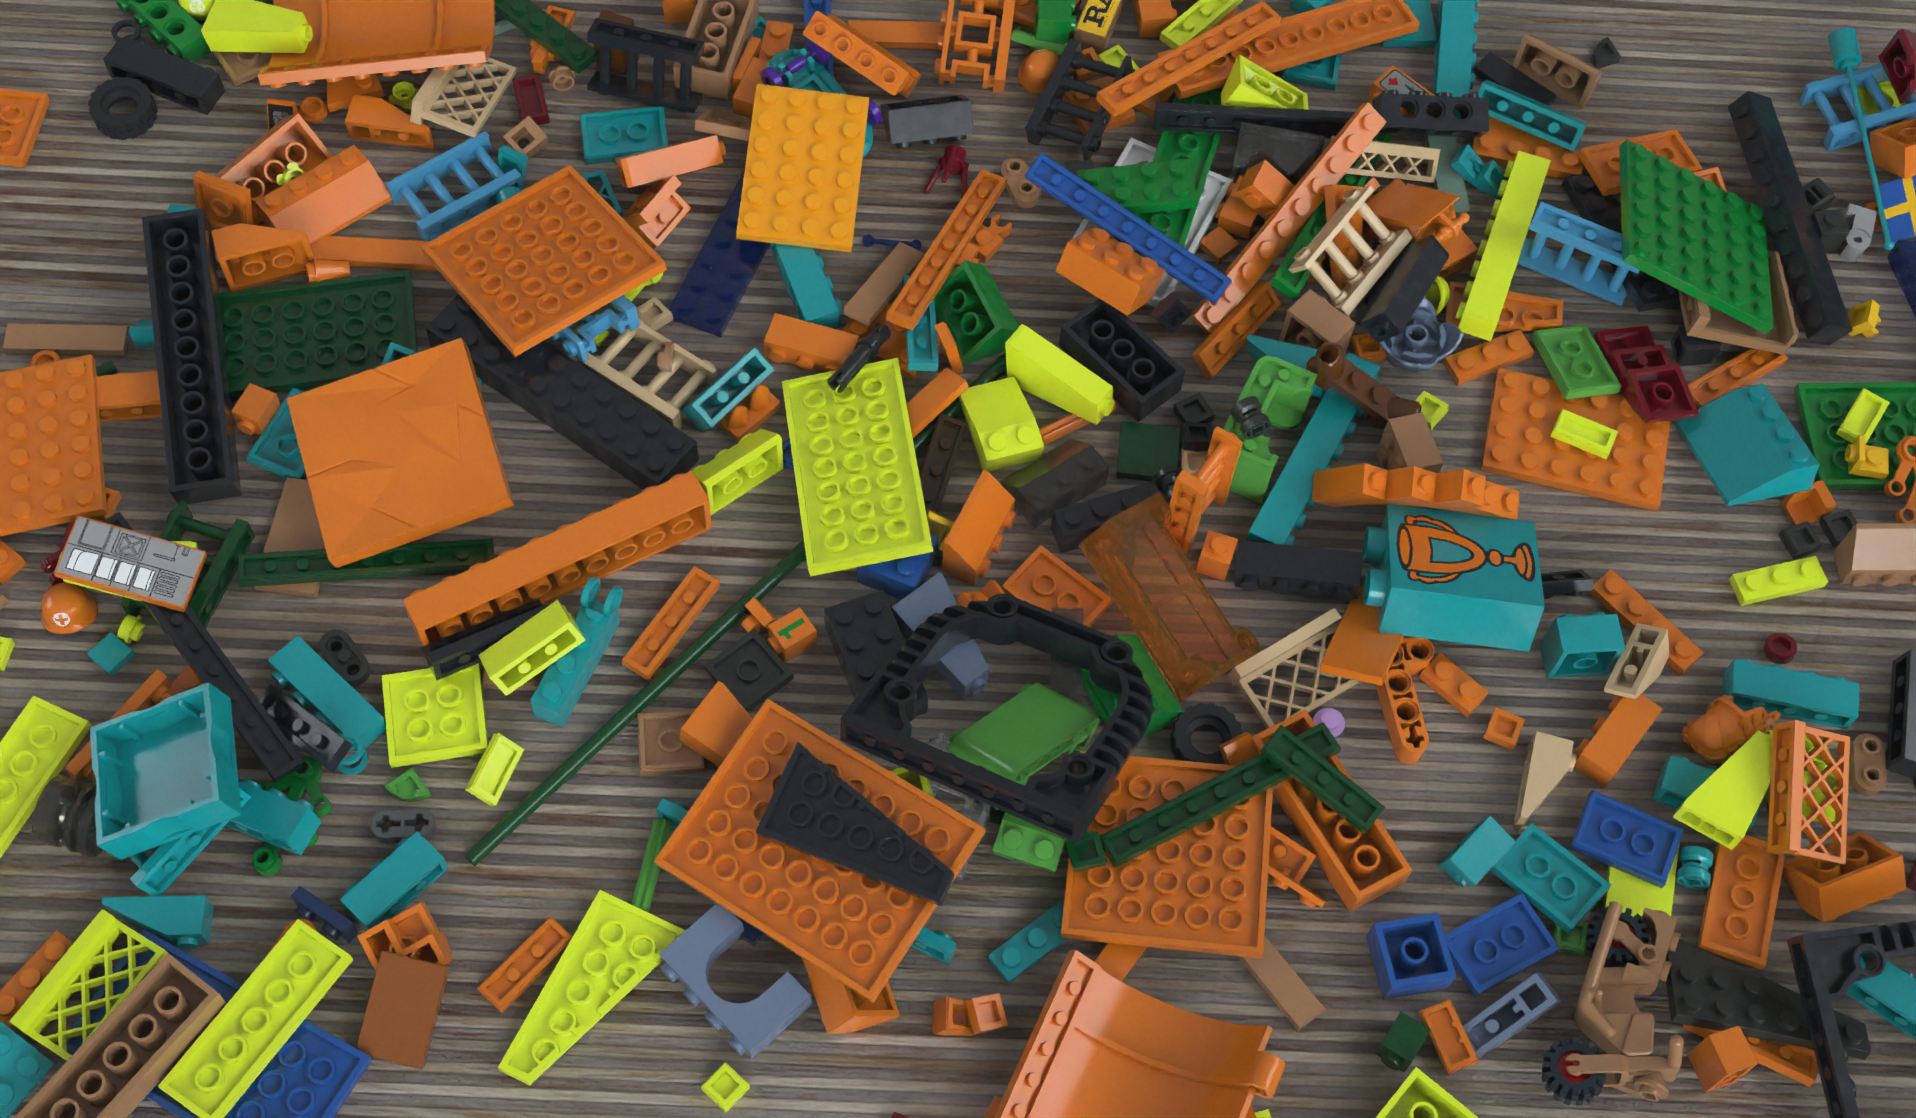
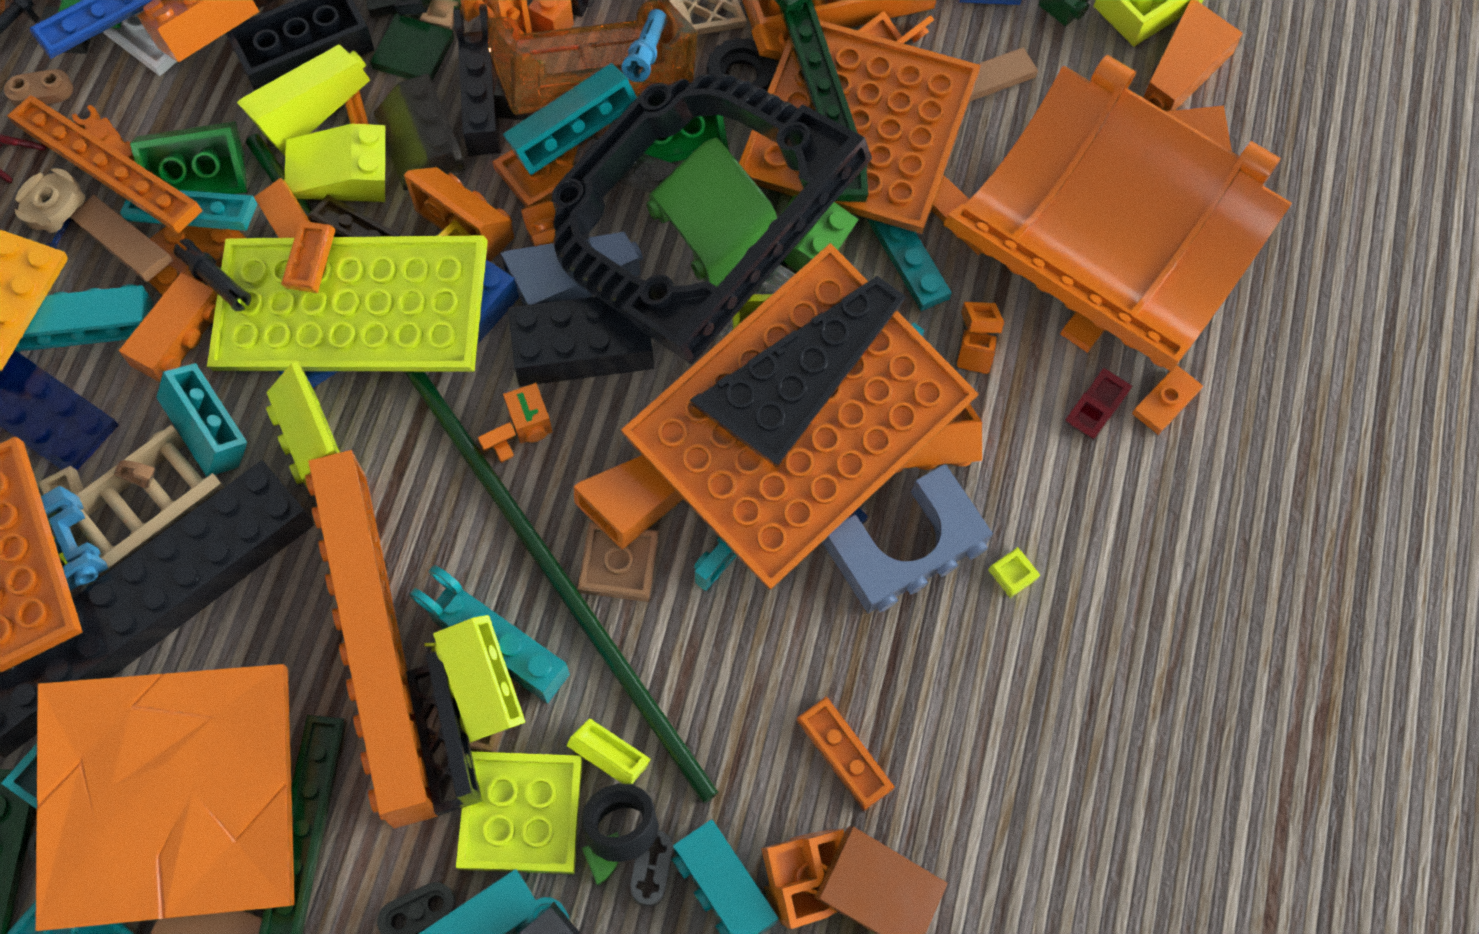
camera: 75 degrees left, 5 degrees up
(441, 769) = (626, 846): none -> black tyre
(598, 968) = (869, 677): neon yellow wing -> none
(649, 870) = (759, 604): bright green axle -> none
(671, 623) = (477, 535): orange plate -> none
(750, 413) = (238, 406): orange tile -> none
(750, 670) = (556, 464): pearl dark grey plate -> none
(885, 420) = (308, 256): none -> orange plate
(895, 226) = (49, 215): none -> tan plate
(949, 348) = (229, 182): orange tile -> none
(1087, 591) = (570, 118): none -> teal brick
(1178, 635) = (643, 51): none -> dark azure pin

